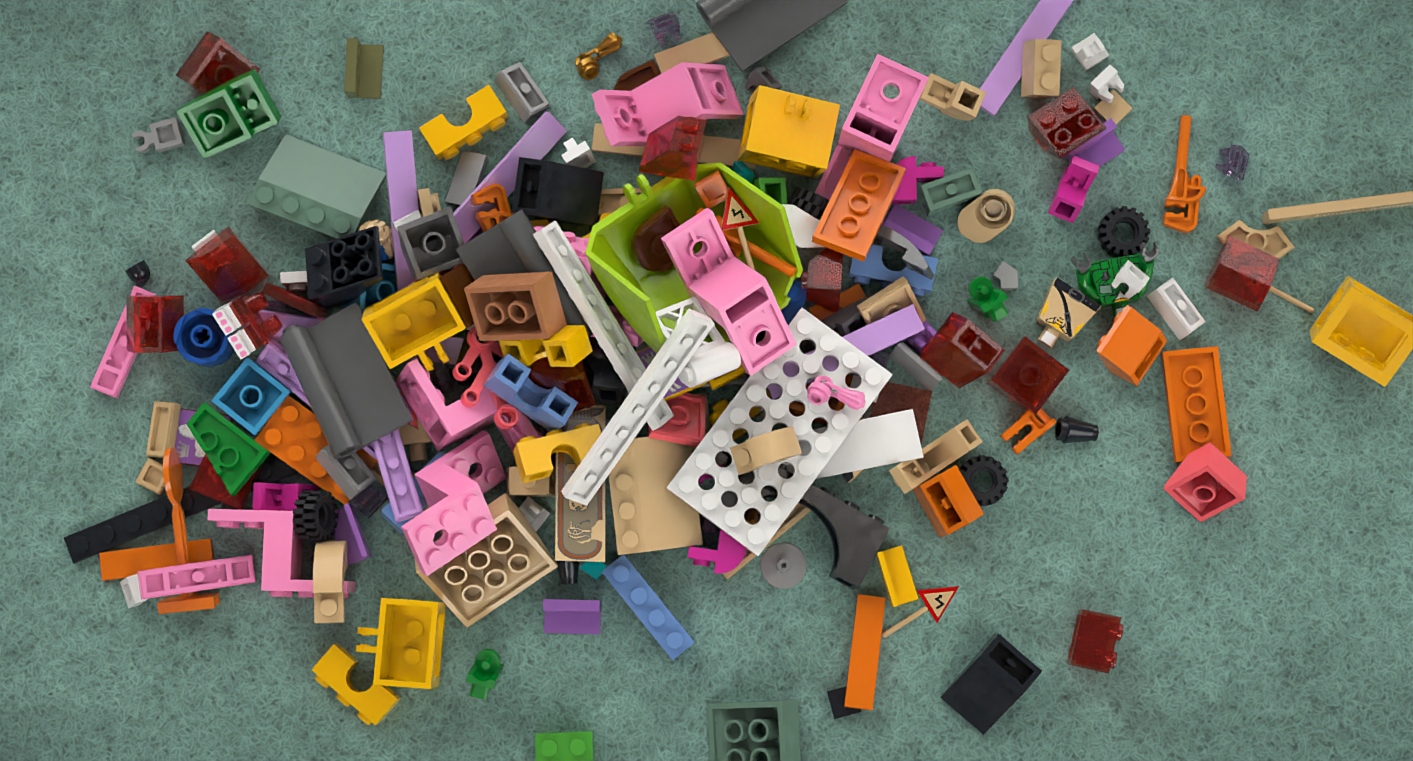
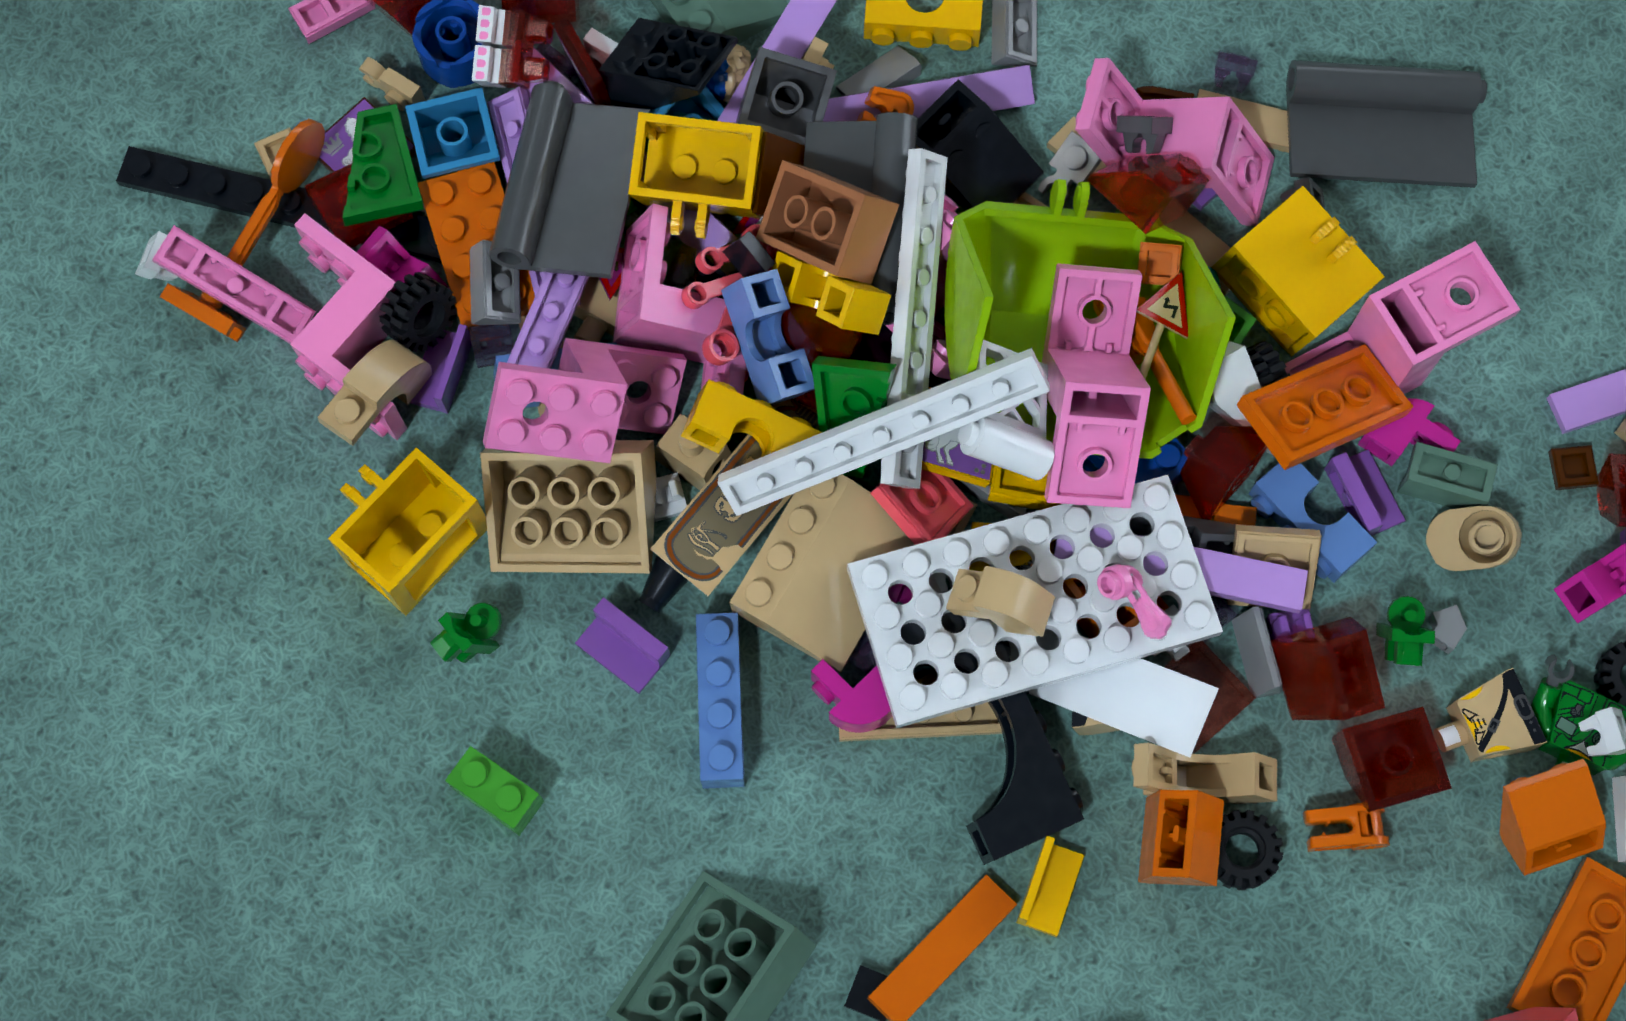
camera: 35 degrees right, 10 degrees down
(127, 562) = (162, 214): orange tile -> none
(163, 428) = (334, 103): tan tile -> none
(196, 390) = (396, 87): none -> tan plate
(335, 671) = (303, 506): yellow arch -> none
(484, 354) = (749, 255): none -> black tile
(577, 155) = (1029, 133): white tile -> none
(588, 66) = (1154, 45): pearl gold piece -> none
(594, 569) = (690, 601): teal piece -> none
(599, 394) = (849, 391): none -> green wing
(616, 157) = (1073, 163): none -> light grey plate
(647, 110) = (1149, 128): none -> dark grey tile
(647, 243) = (1033, 276): reddish brown tile -> none
(783, 565) = (919, 775): light grey piece -> none
(912, 256) = (1344, 492): dark grey slope -> none
(935, 602) = (1075, 957): piece -> none
(955, 100) = (1526, 377): tan brick -> none
(1012, 133) = (1573, 467): none -> reddish brown tile
(1074, 430) = (1405, 874): black cone -> none

